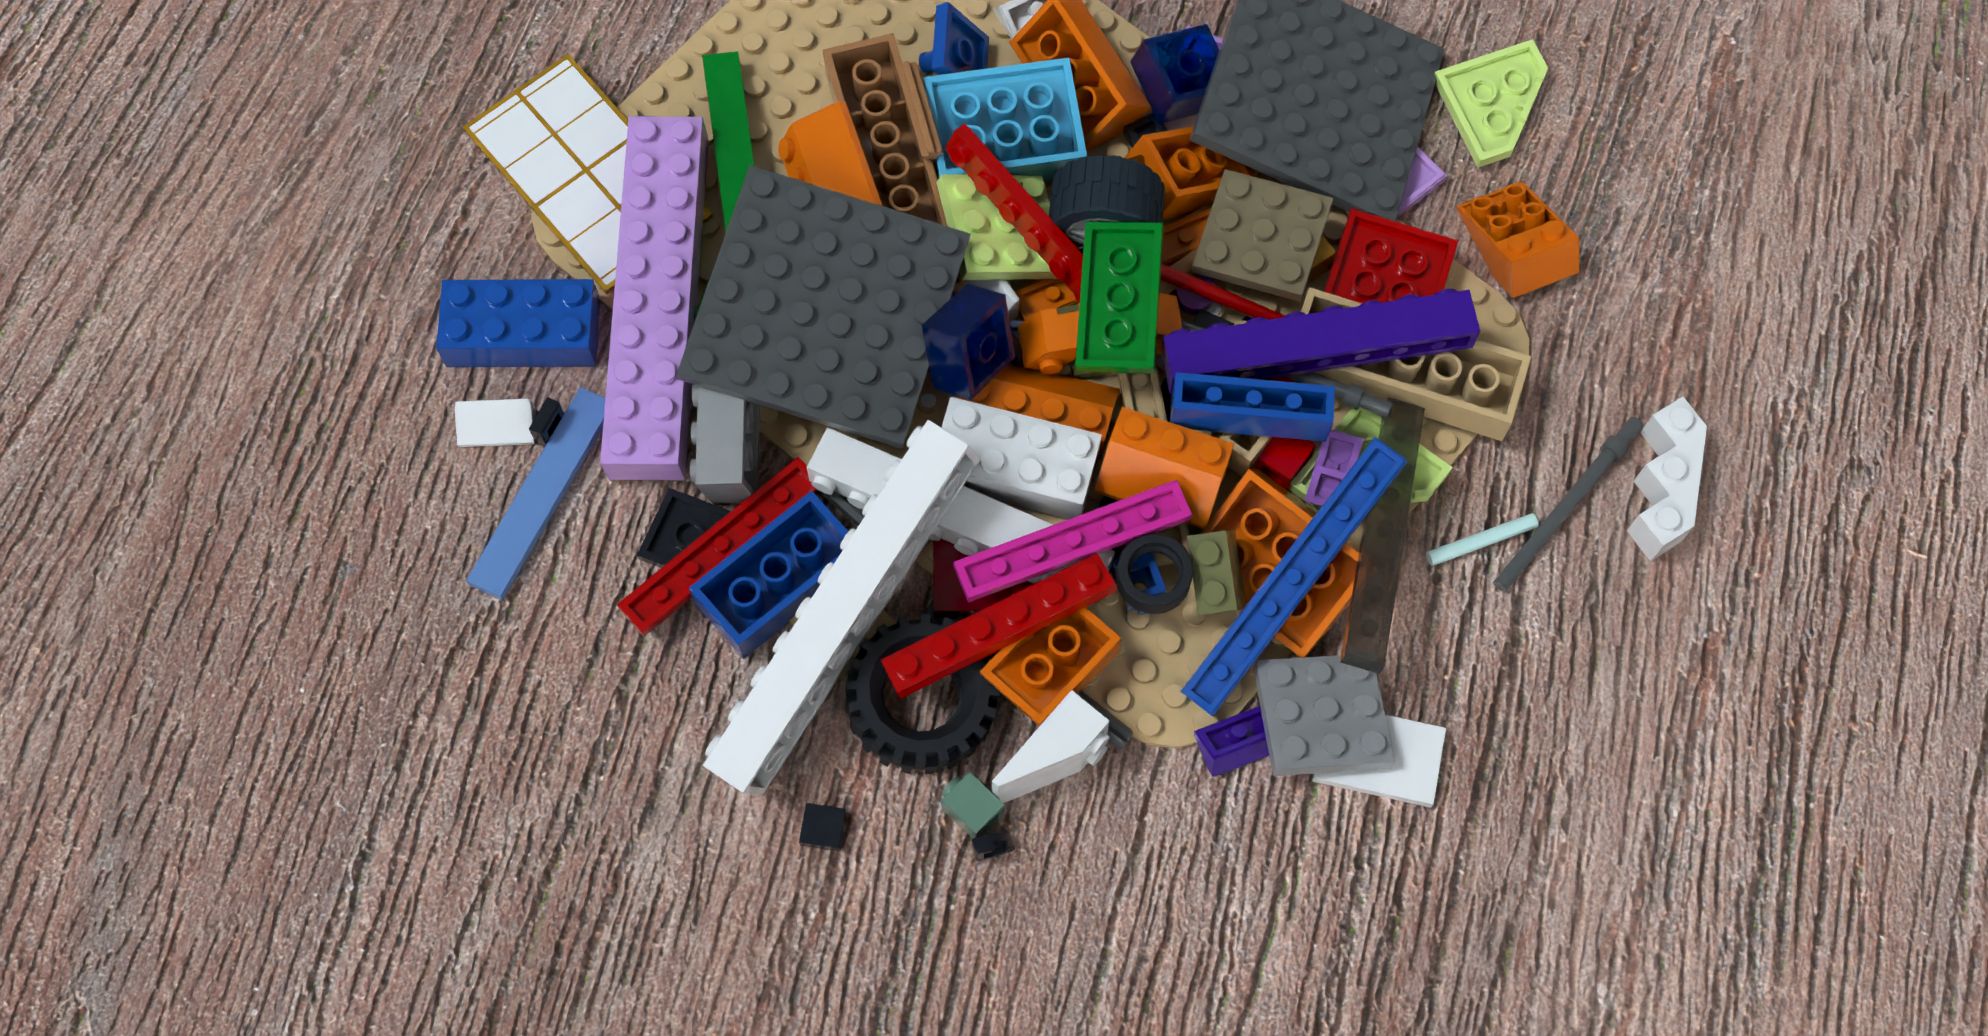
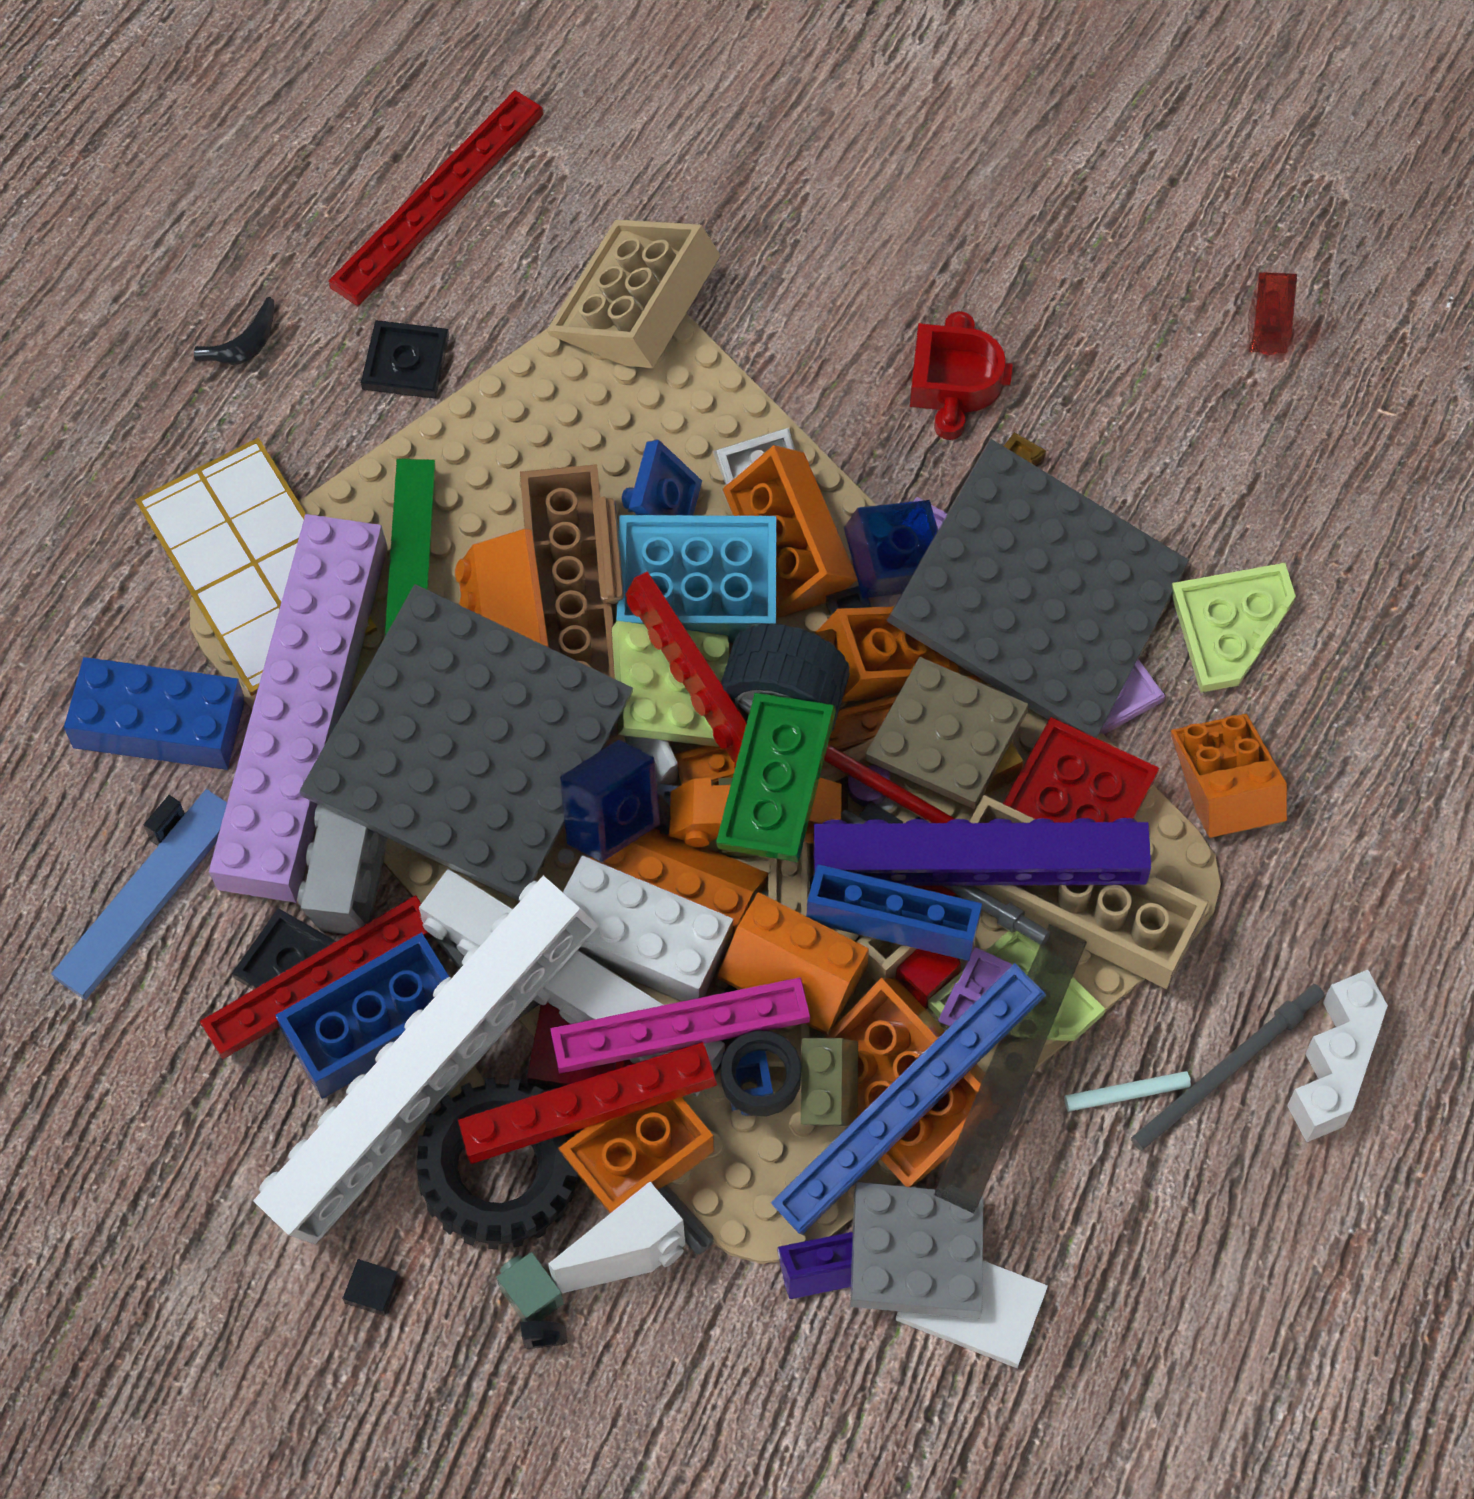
camera: 10 degrees right, 5 degrees down
(494, 422) = (110, 813): white slope -> none

